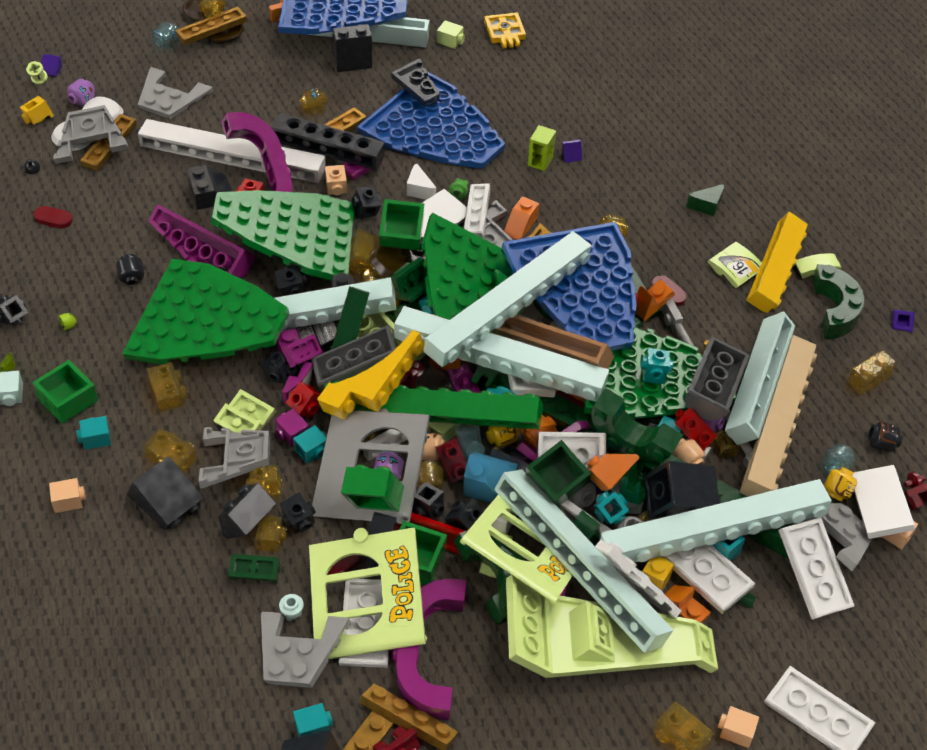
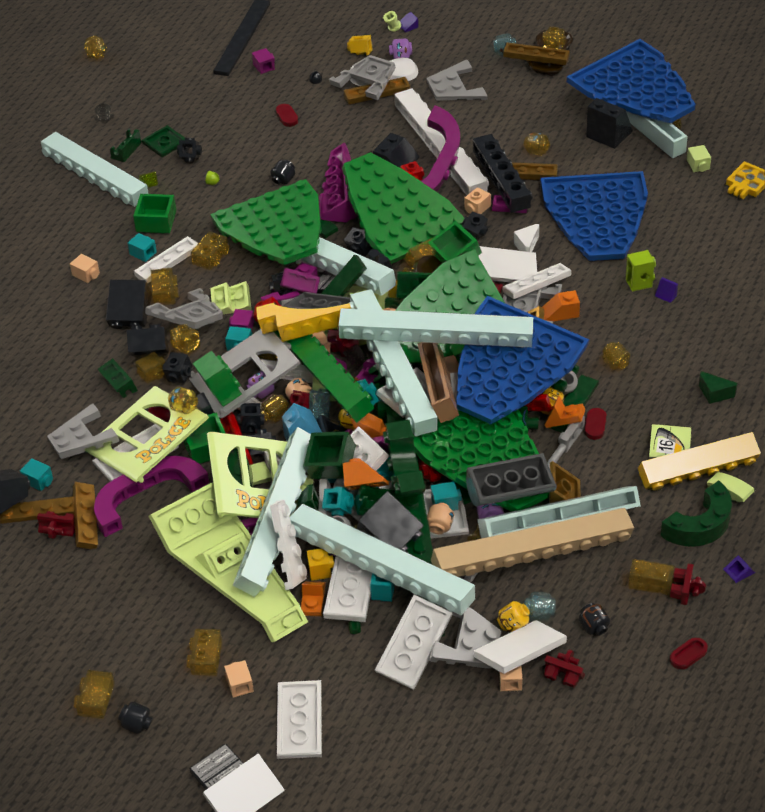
camera: 55 degrees right, 5 degrees down
(134, 426) = (167, 258): none -> white plate
(291, 606) = (107, 412): light aqua hose -> none
(377, 533) = (183, 400): none -> clear yellow head
(416, 82) = (620, 173): black wing -> none
(459, 189) = (548, 260): bright green hose -> none
(656, 366) = (482, 443): teal brick -> none
(695, 428) = (462, 505): red hinge -> none
(901, 356) = (685, 576): none -> dark red hips

